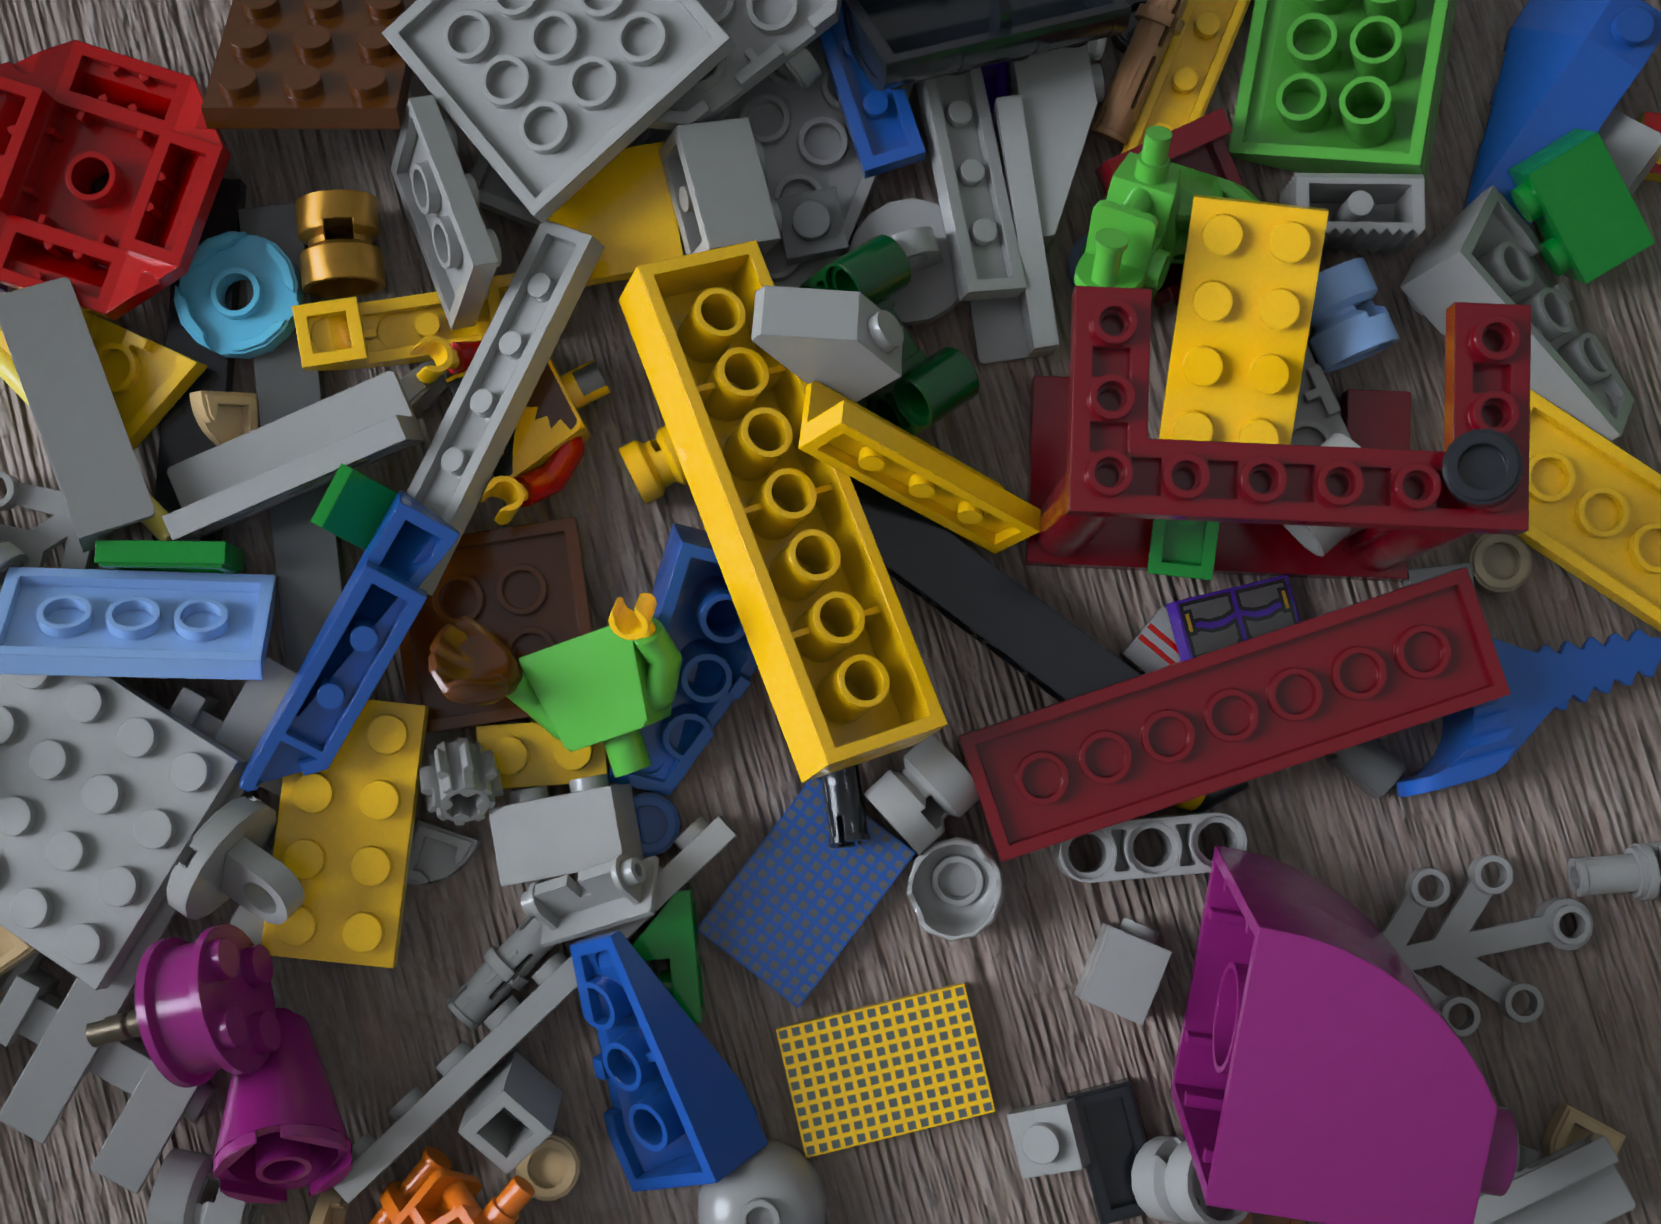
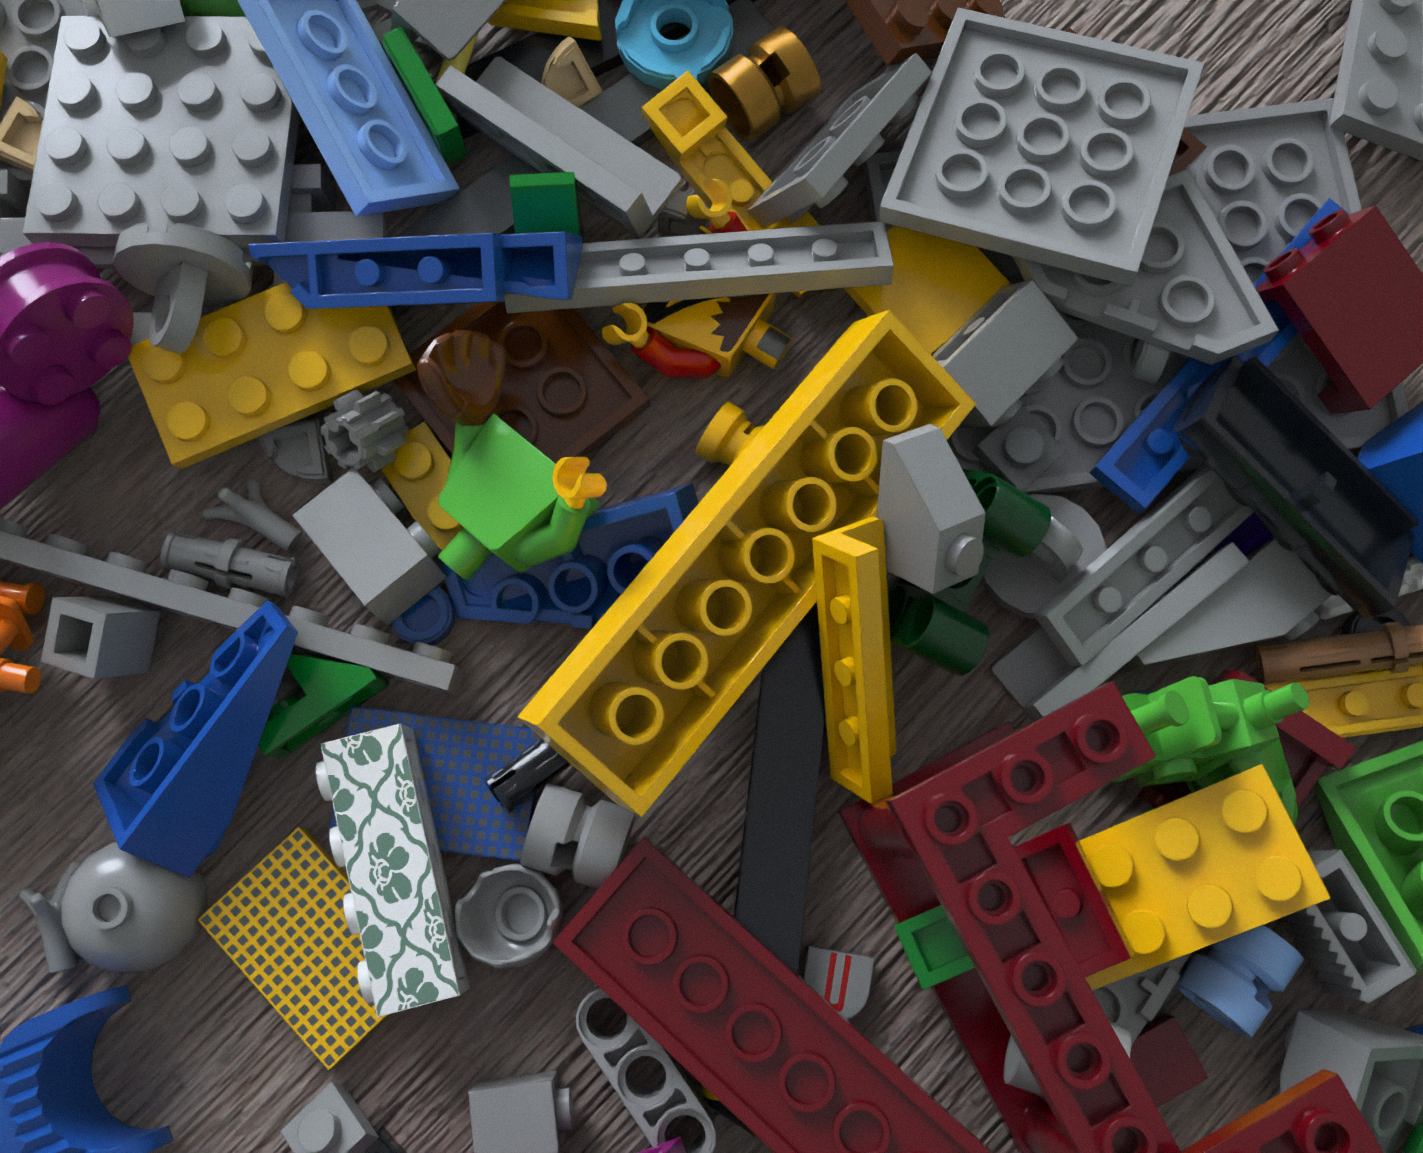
camera: 55 degrees right, 5 degrees down
(473, 923) = (256, 515): none -> light grey bar
(552, 1167) = (77, 701): tan tile -> none
(596, 901) = (321, 598): light grey hinge -> none
(863, 964) = (392, 870): none -> white brick
(1213, 413) = (1075, 899): none -> dark red plate
(1231, 615) = (901, 1028): tile -> none

